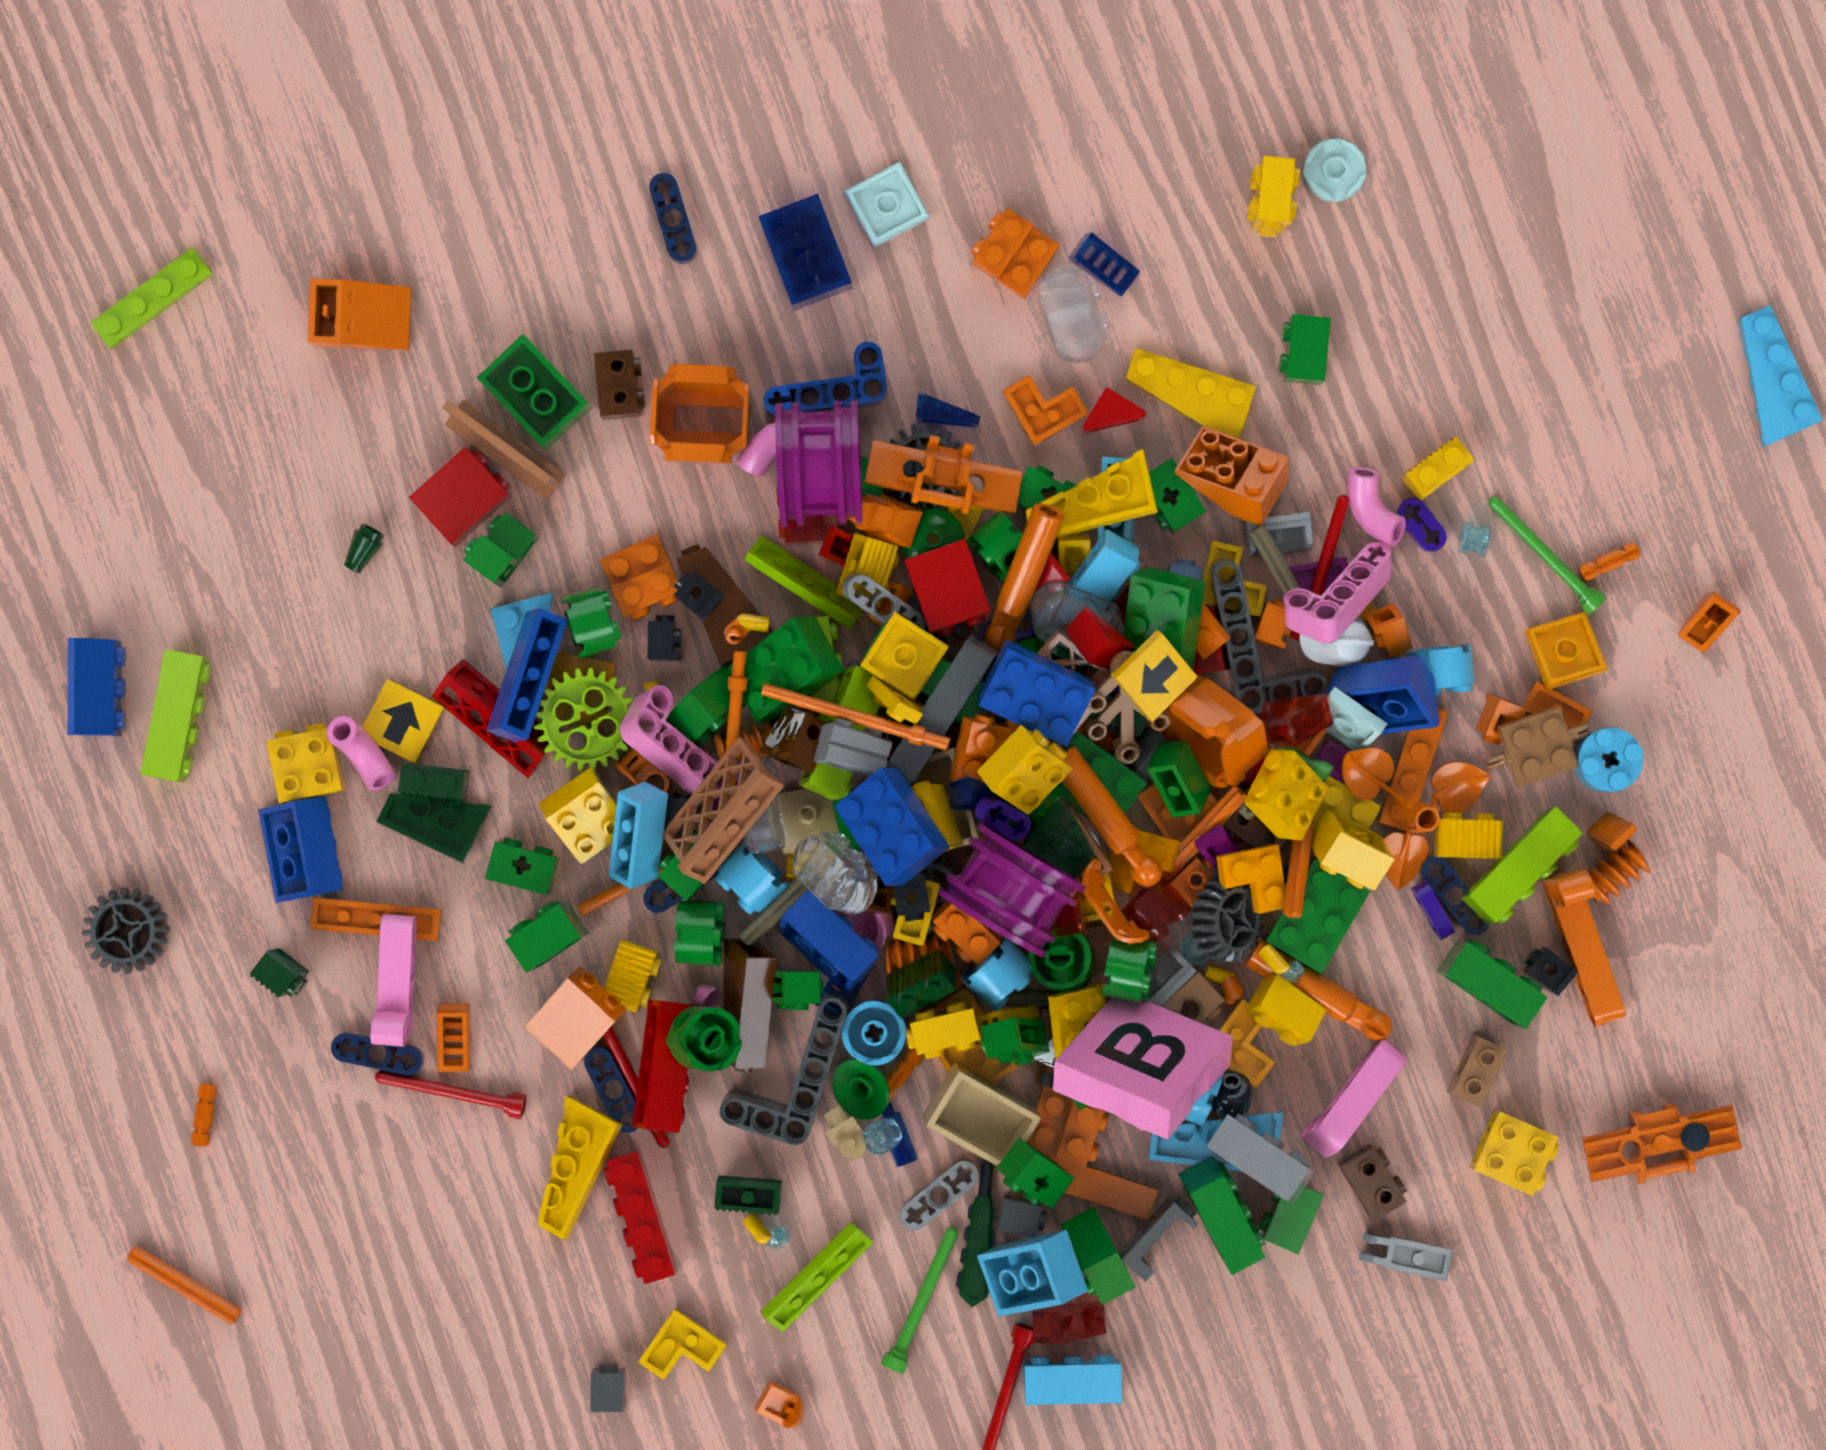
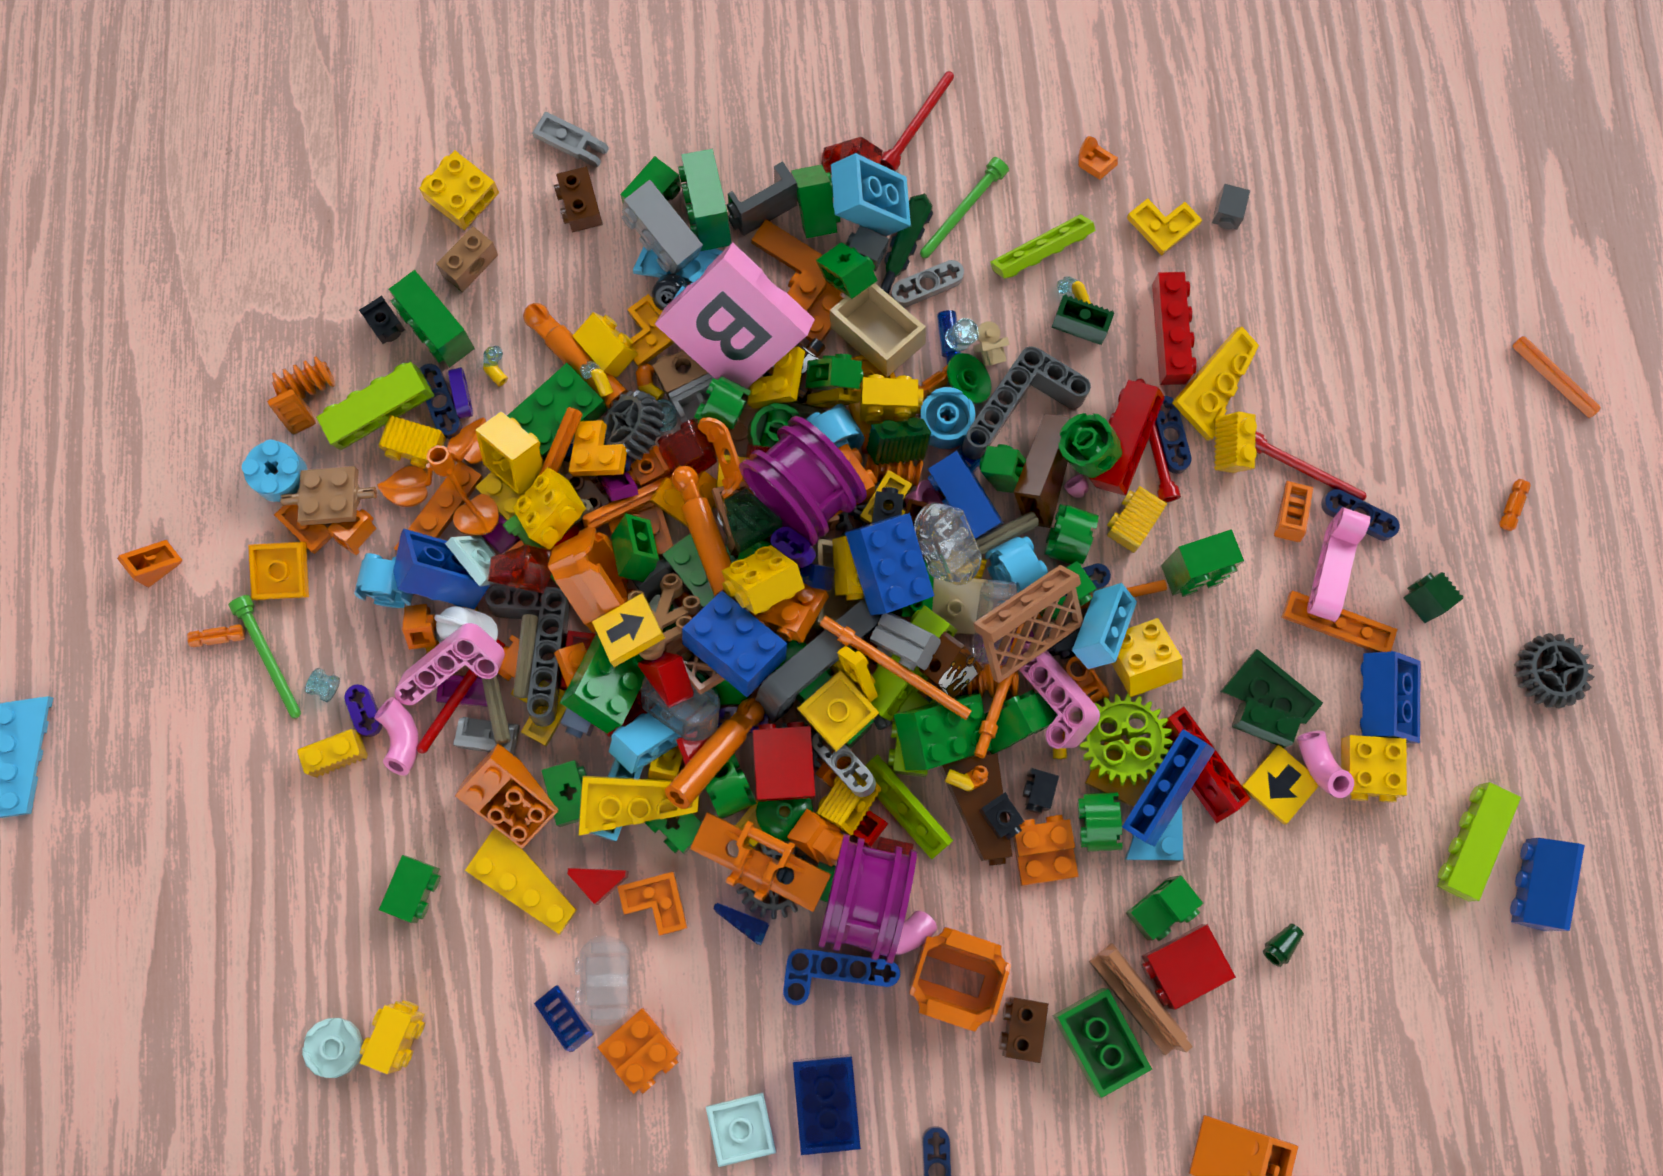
camera: 170 degrees left, 10 degrees down
(503, 868) = (1220, 632): green brick -> none
(539, 1095) = (1235, 442): none -> yellow brick
(575, 1017) = (1191, 494): panel -> none
(1072, 1380) = (861, 116): medium azure brick -> none
(1261, 627) = (525, 655): none -> dark tan axle
(1355, 1099) = (571, 261): bright pink beam -> none
(1410, 955) = (490, 365): none -> arm
(1568, 899) = (346, 365): orange beam -> none
(1660, 1132) = (339, 173): orange piece -> none

